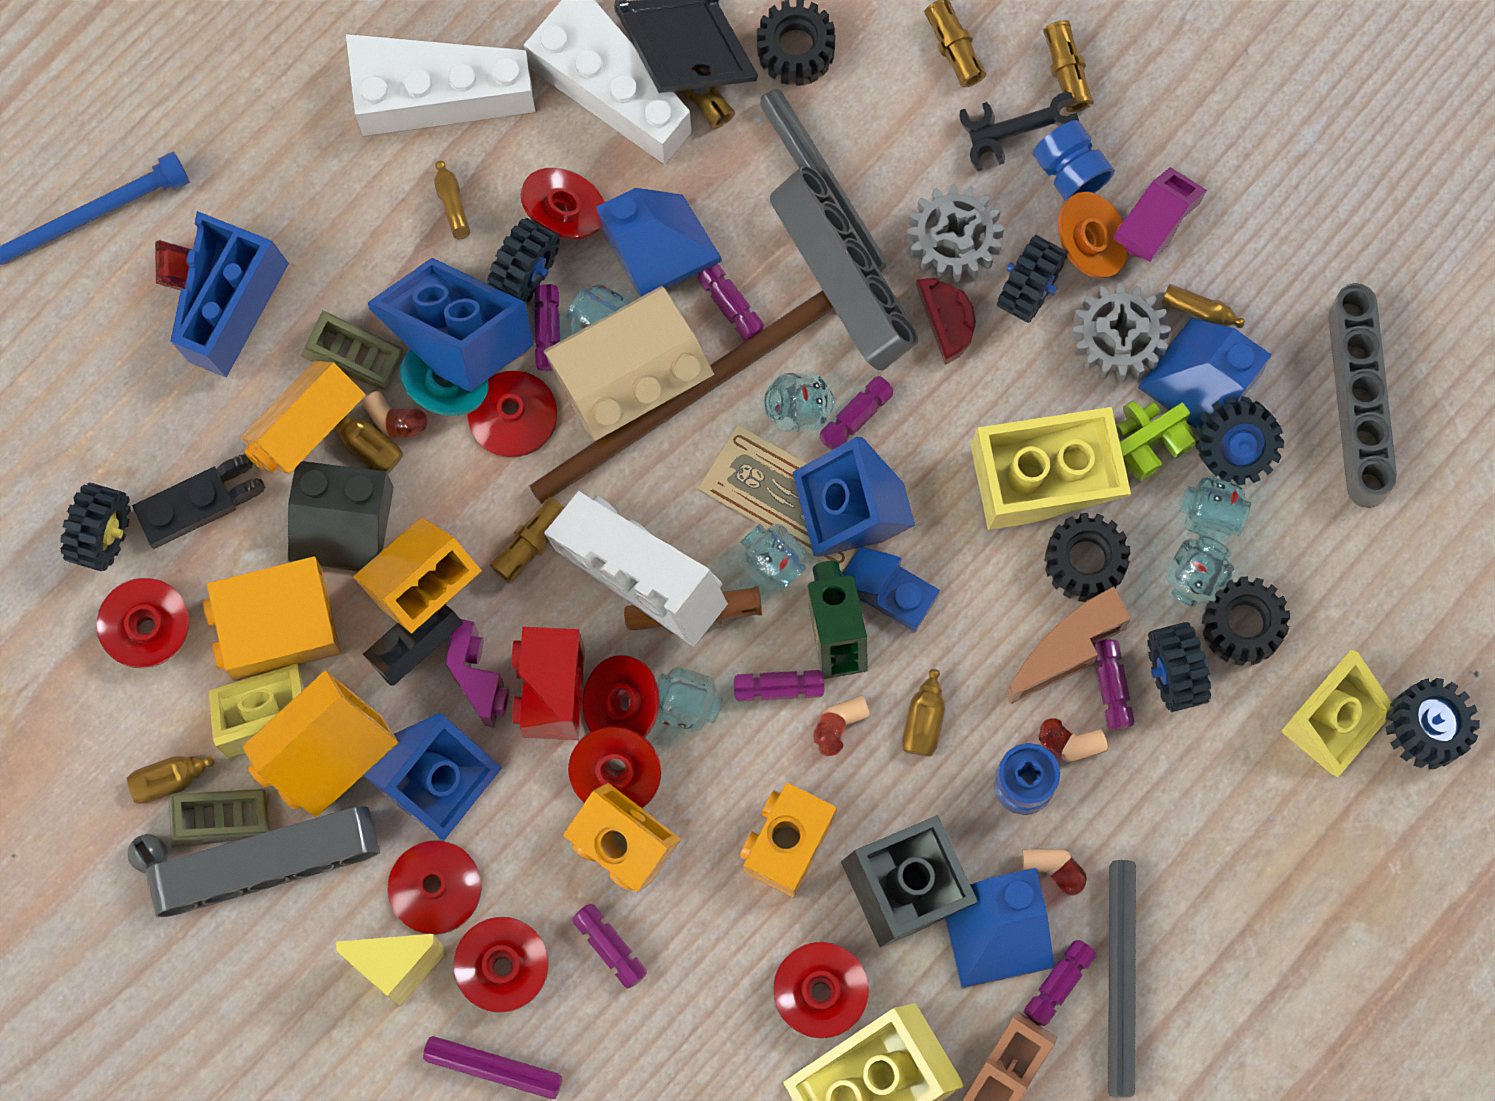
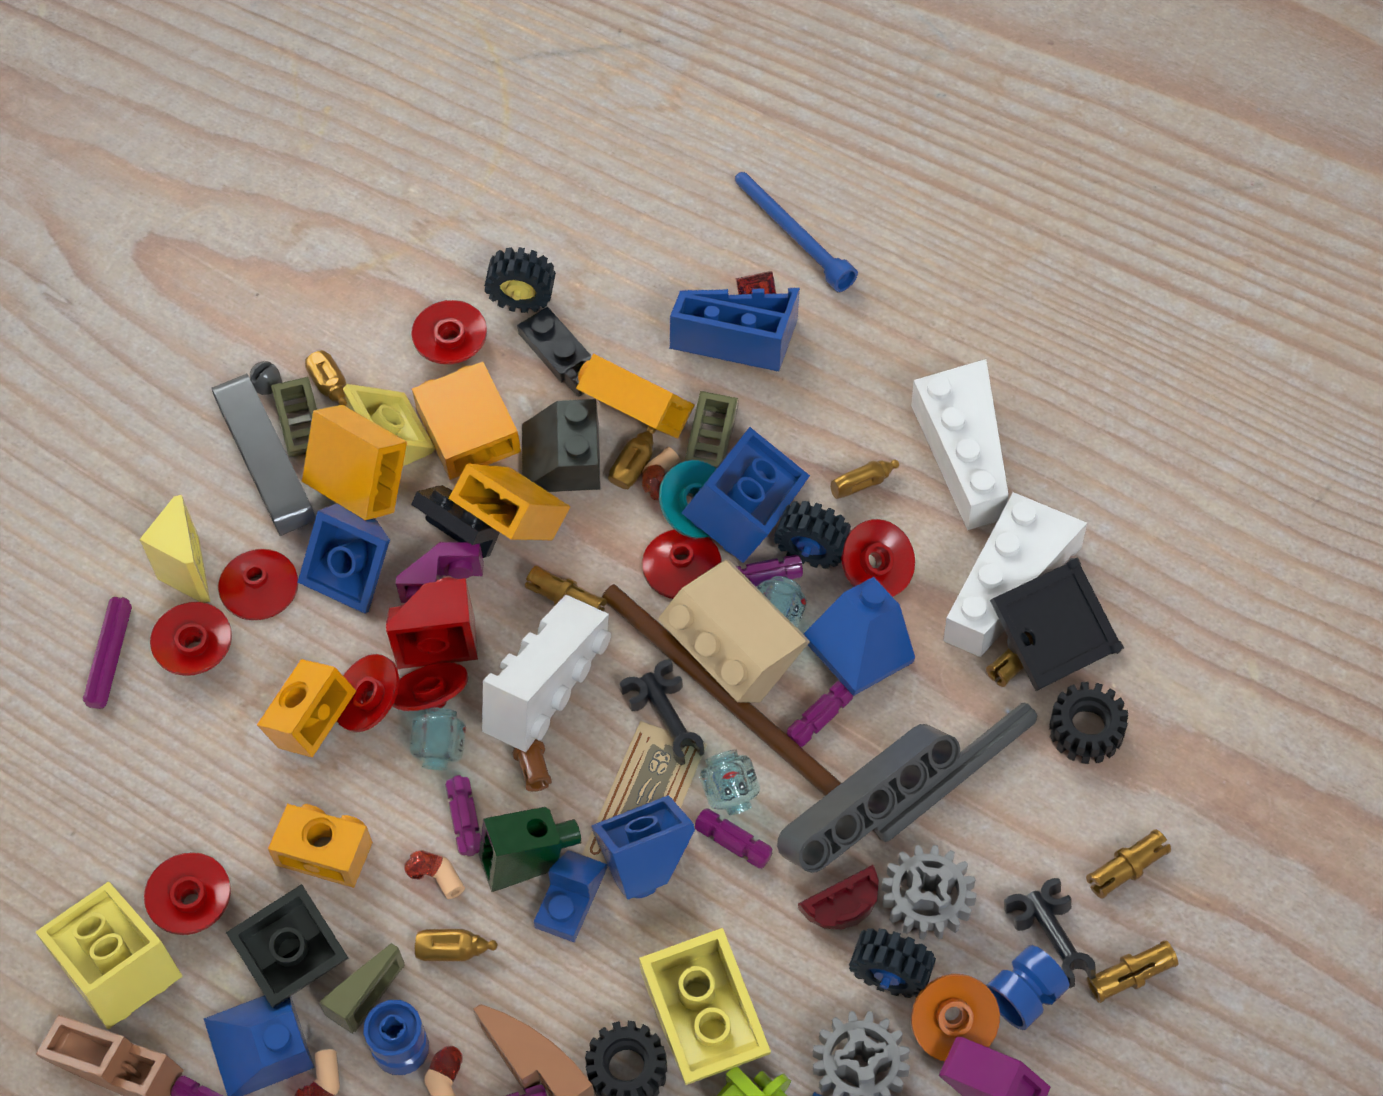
camera: 80 degrees right, 15 degrees down
(609, 946) = (216, 721): magenta axle -> none
(664, 467) = (655, 687): none -> black bar
(772, 557) = (579, 786): clear light blue head -> none
(971, 819) = (360, 992): none -> olive slope

